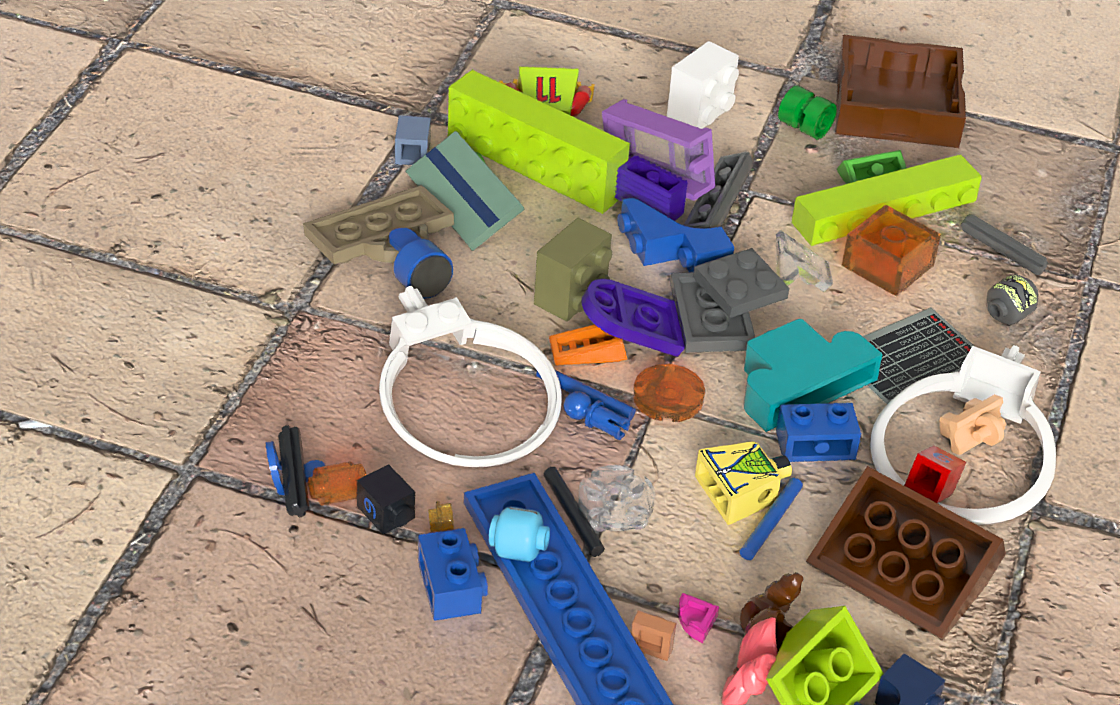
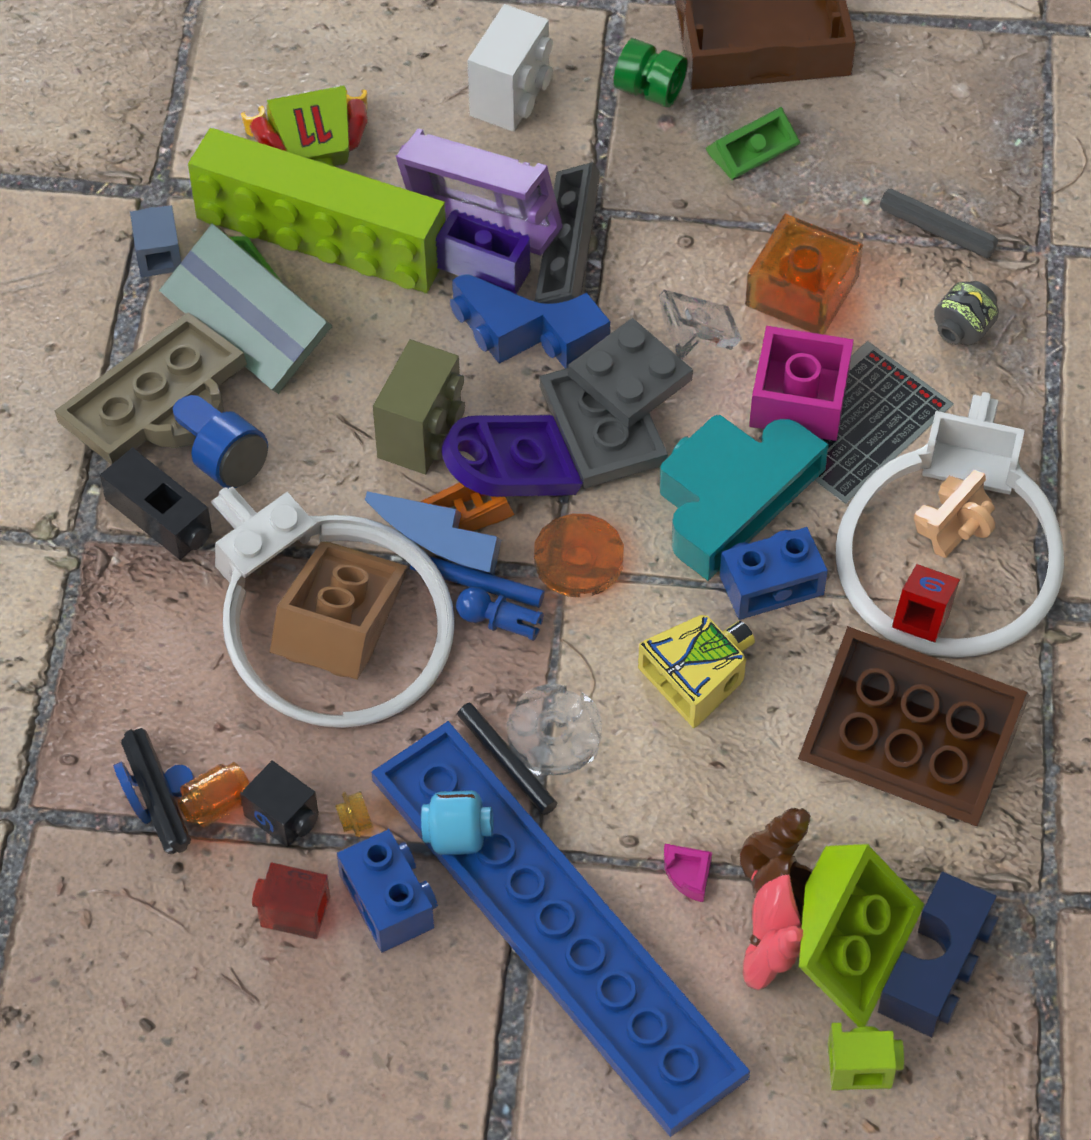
camera: 10 degrees left, 15 degrees up
(358, 293) = (156, 503): none -> black brick
(374, 564) = (292, 900): none -> clear red brick
(469, 386) = (336, 609): none -> medium nougat slope
(565, 349) = (438, 531): none -> medium blue slope
(654, 635) = (646, 913): nougat plate -> none
(771, 519) = (743, 709): blue bar -> none
(874, 309) = (801, 380): none -> dark pink brick
(912, 191) = (786, 183): lime brick -> none

